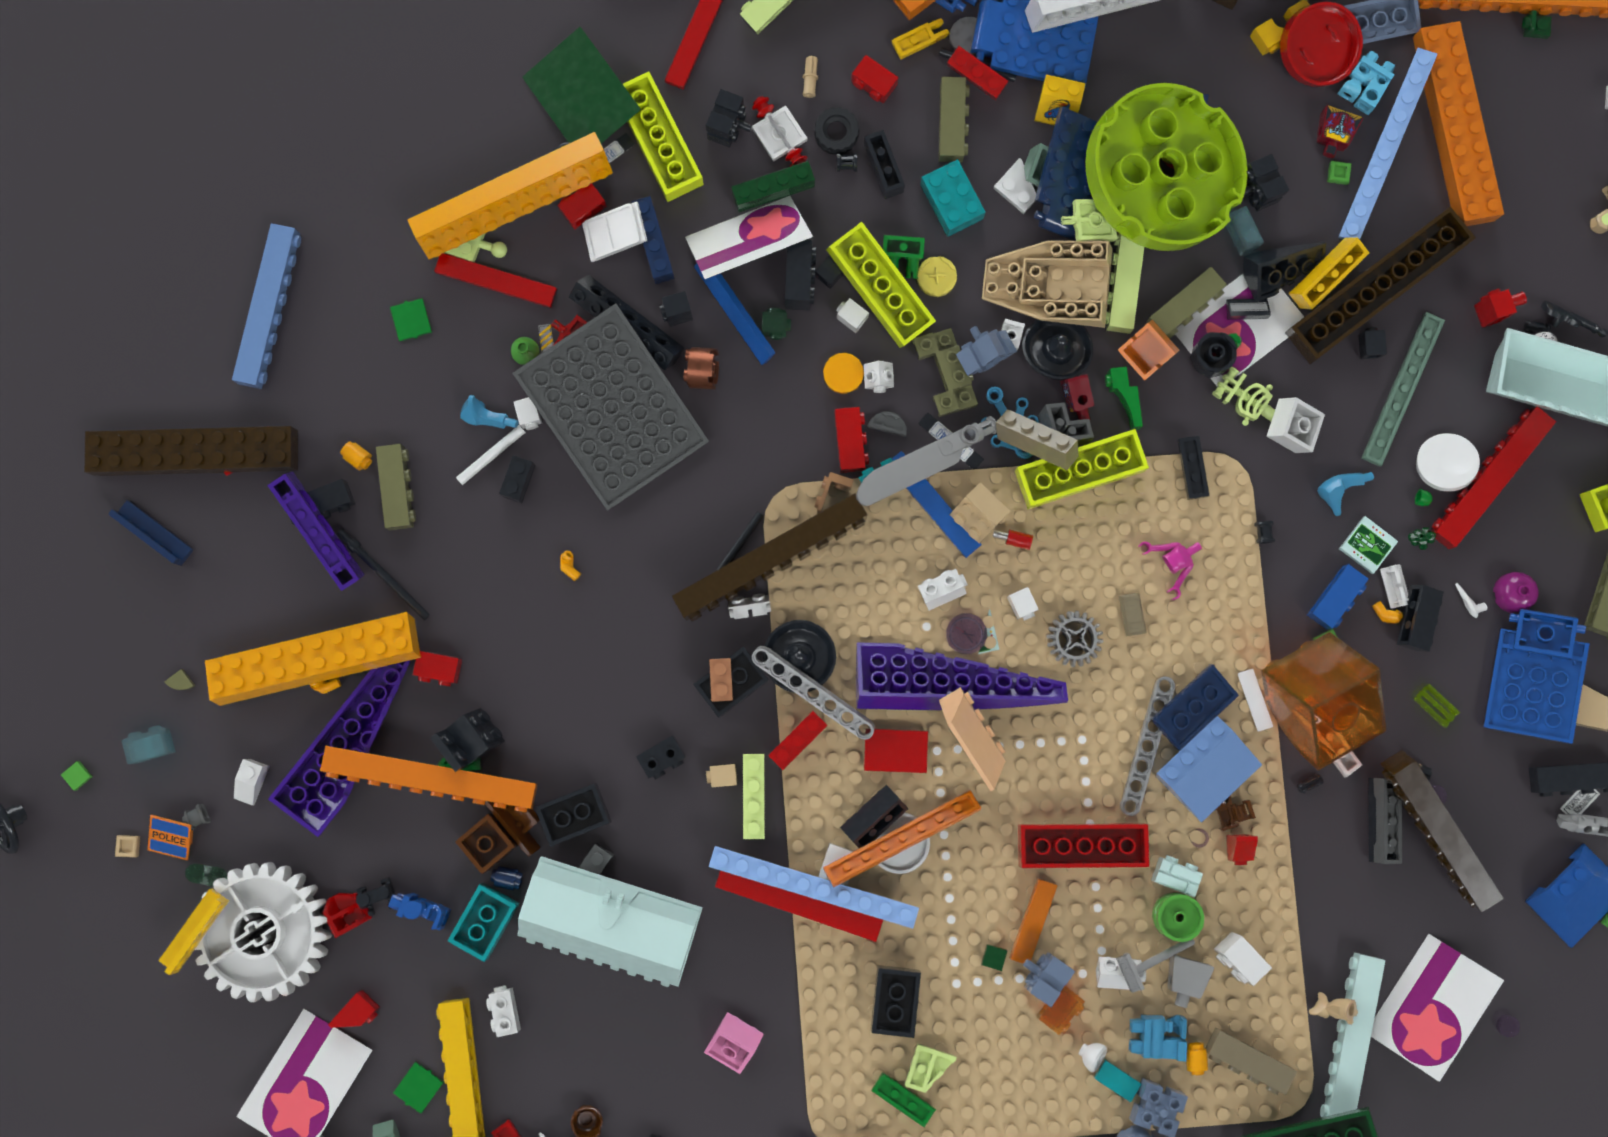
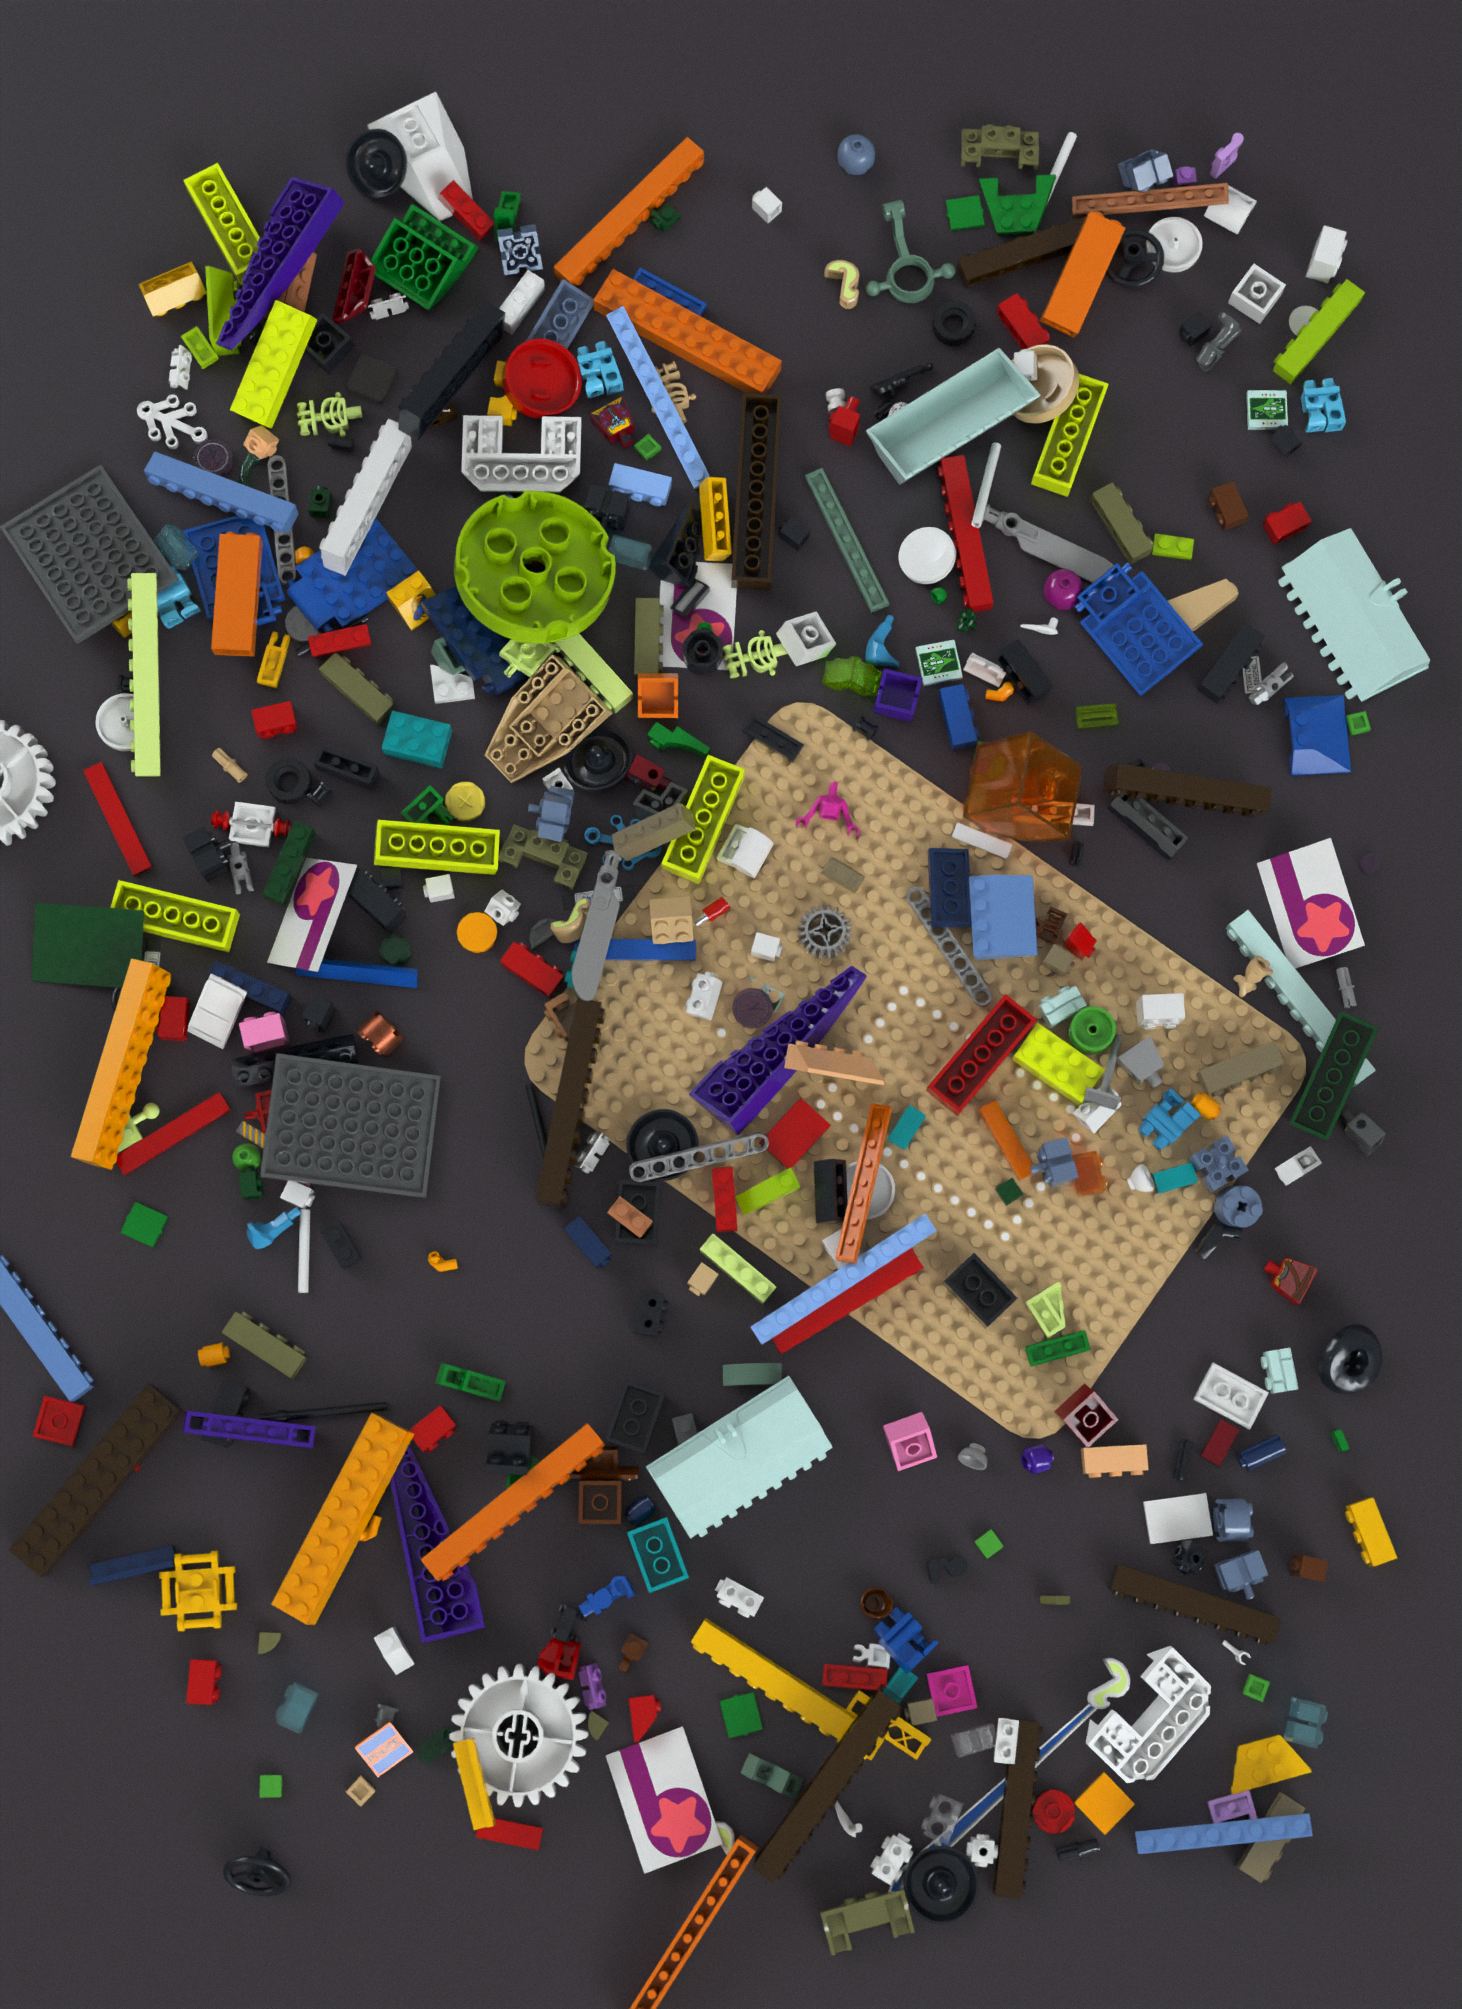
camera: 50 degrees left, 5 degrees down
(110, 659) = (203, 1682): none -> red piece
(172, 597) = (198, 1590): none -> yellow brick
(190, 990) = (512, 1833): none -> red tile
(214, 385) = (59, 1421): none -> red tile
(320, 983) = (596, 1725): none -> olive tile
(340, 963) = (591, 1676): none -> medium lavender hinge
(398, 962) = (633, 1649): none -> reddish brown plate
(495, 665) = (470, 1382): none -> green slope
(503, 371) = (250, 1184): none -> dark green brick
(627, 280) = (264, 1032): none -> bright pink piece
(677, 663) = (588, 1242): none -> dark blue brick
(681, 876) = (752, 1374): none -> sand green brick
(744, 147) = (237, 860): none -> light grey hinge
(763, 1104) = (974, 1457): none -> light grey piece
(832, 768) = (768, 1191): none -> lime slope
(909, 442) = (572, 929): none -> tan animal
(975, 833) = (906, 1127): none -> teal tile
(1085, 522) = (745, 850): none -> white brick
(1128, 912) = (1058, 1064): none -> neon yellow brick
(1212, 843) = (1059, 960): none -> dark tan brick
(1217, 76) = (517, 472): none -> white slope
(1298, 485) = (852, 675): none -> clear neon green brick
(1305, 193) = (640, 484): none -> light blue brick
(1314, 535) = (897, 695): none -> dark purple piece
(1391, 1090) = (1346, 987): none -> light grey axle
(1404, 155) = (676, 391): none -> tan torso
(1481, 81) = (670, 291): none -> blue plate
(1510, 281) = (835, 398): none -> white wheel
(1541, 551) = (1049, 546): none -> light grey piece
(1547, 460) = (986, 485): none -> white piece

